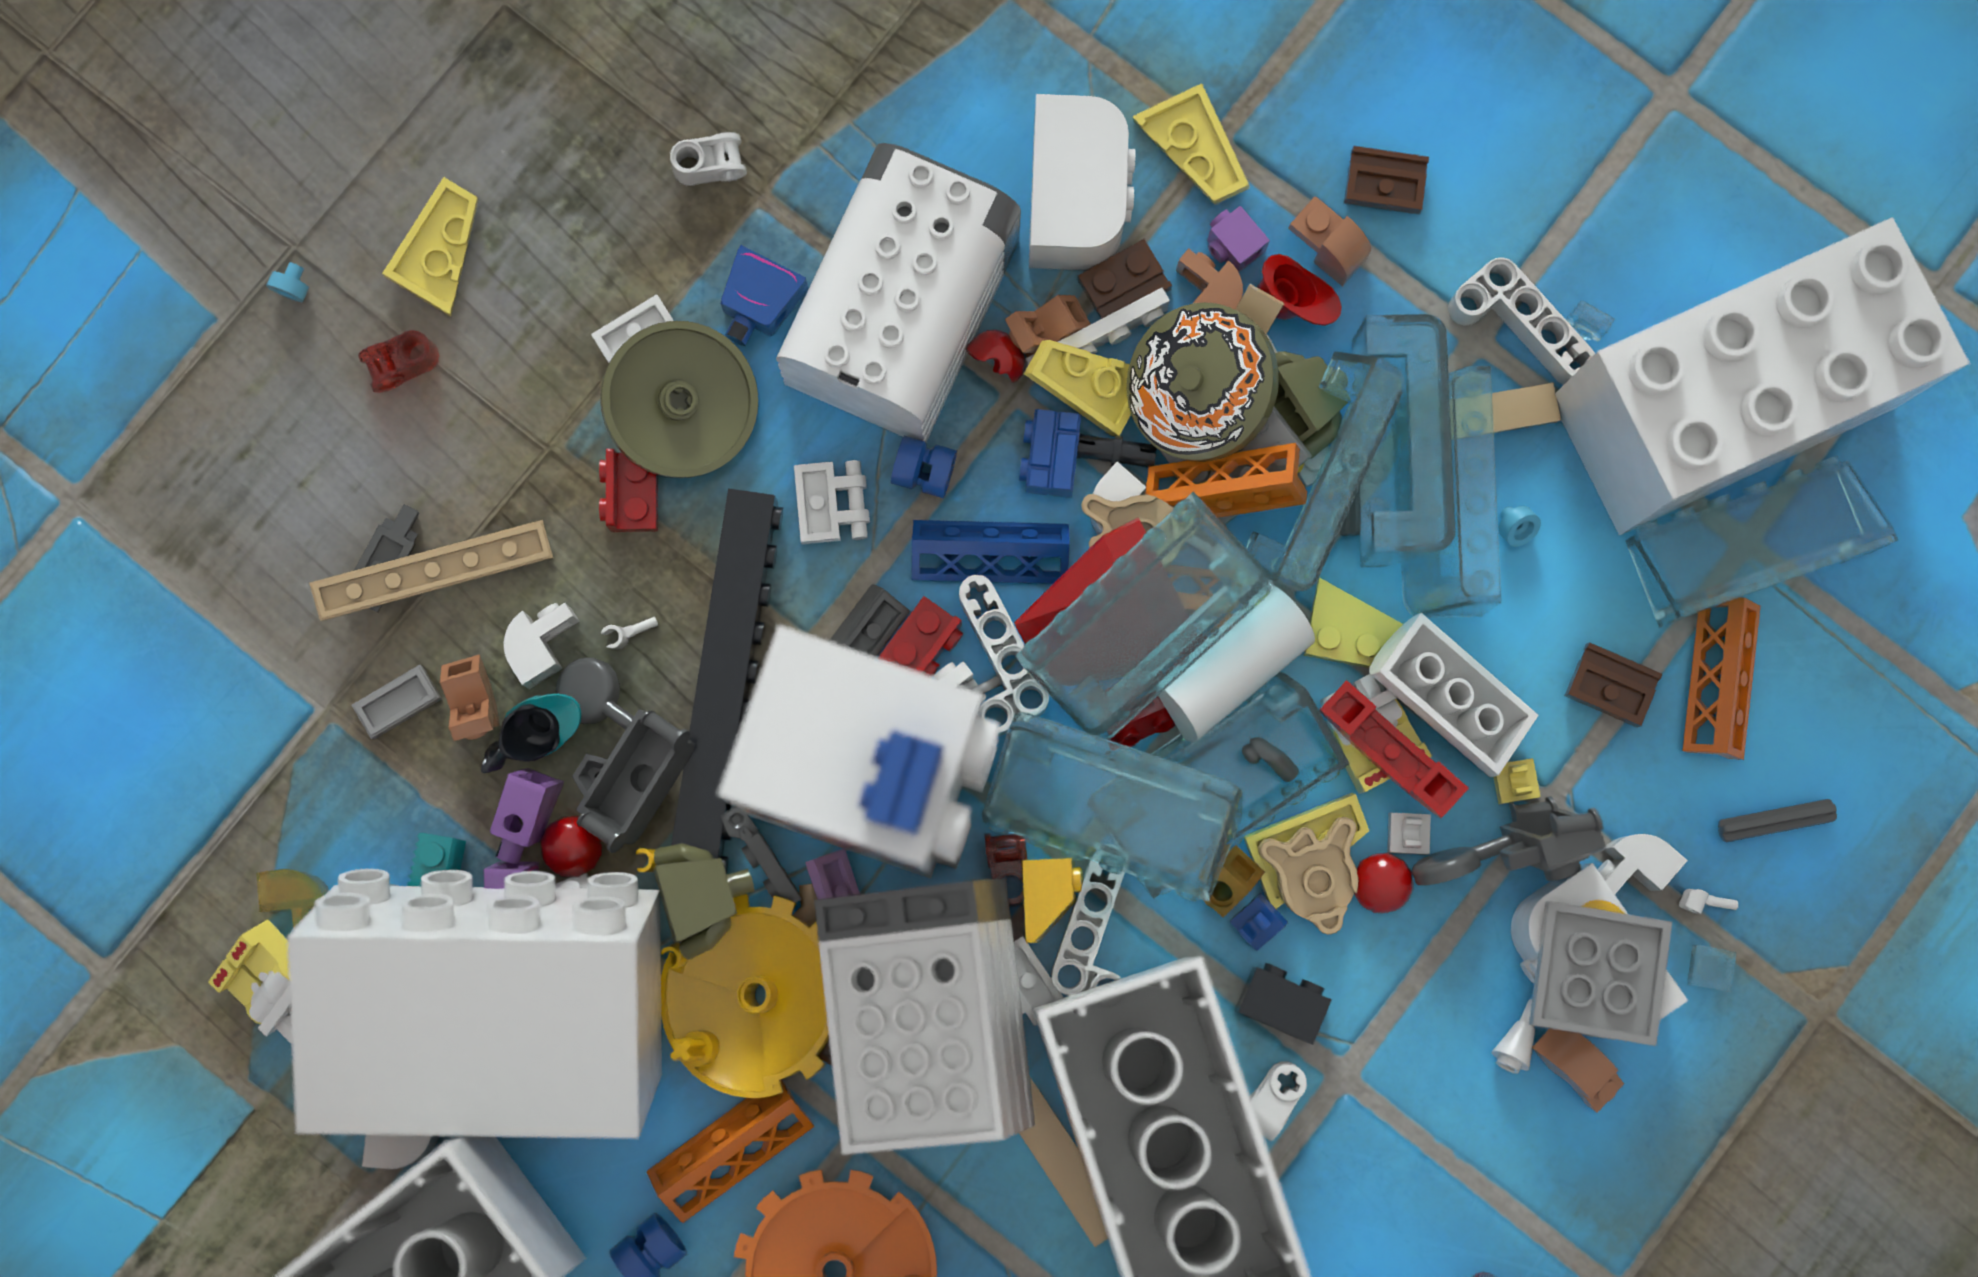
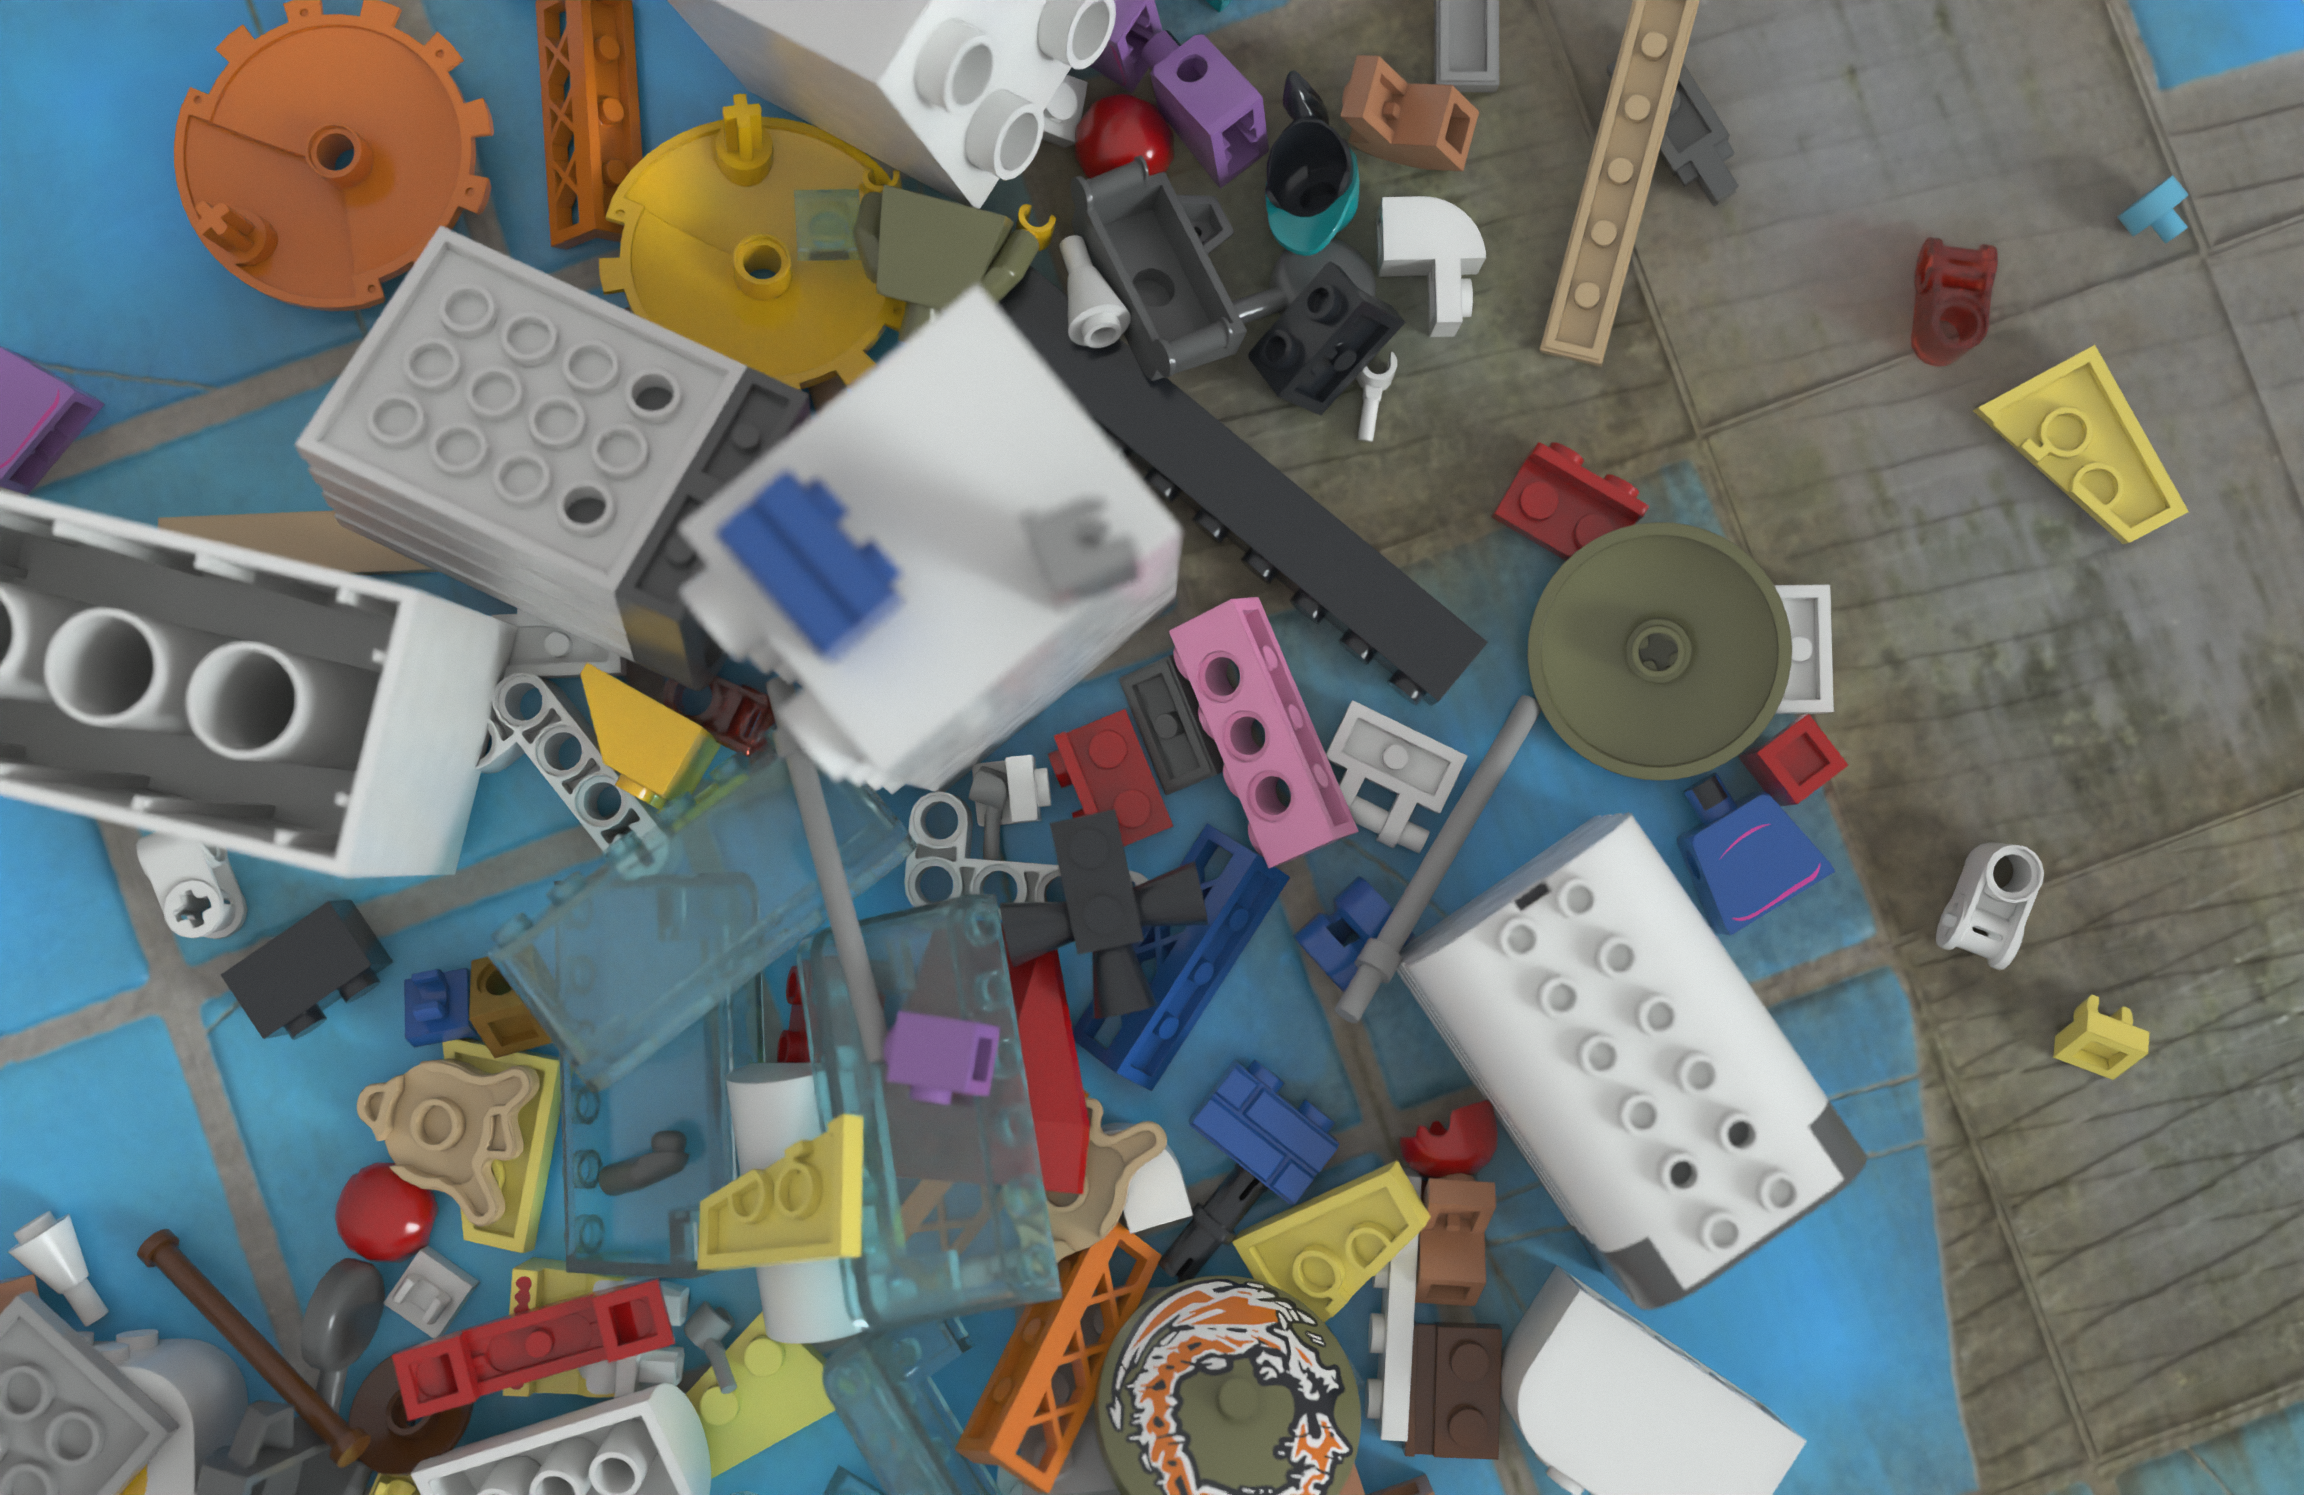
camera: 125 degrees right, 5 degrees up
(618, 670) = (1324, 340): none -> black bracket
(675, 796) = (1094, 309): none -> white cone
(696, 297) = (1794, 762): none -> red panel
(714, 969) = (826, 224): none -> clear light blue plate
(746, 65) = (2100, 1041): none -> light yellow tile
(825, 658) = (1073, 554): none -> light grey hinge
(847, 554) = (1291, 746): none -> bright pink brick
(925, 442) = (1381, 955): none -> light grey bar
(989, 595) = (1103, 911): none -> black brick
(1002, 804) = (831, 878): none -> light grey bar
(1111, 622) = (940, 1056): none -> medium lavender brick
(1237, 655) = (793, 1209): none -> light yellow wing
(1334, 676) = (706, 1331): none -> light grey hand
(1480, 818) = (395, 1441): none -> reddish brown dish
(1491, 904) = (163, 1252): none -> reddish brown bar

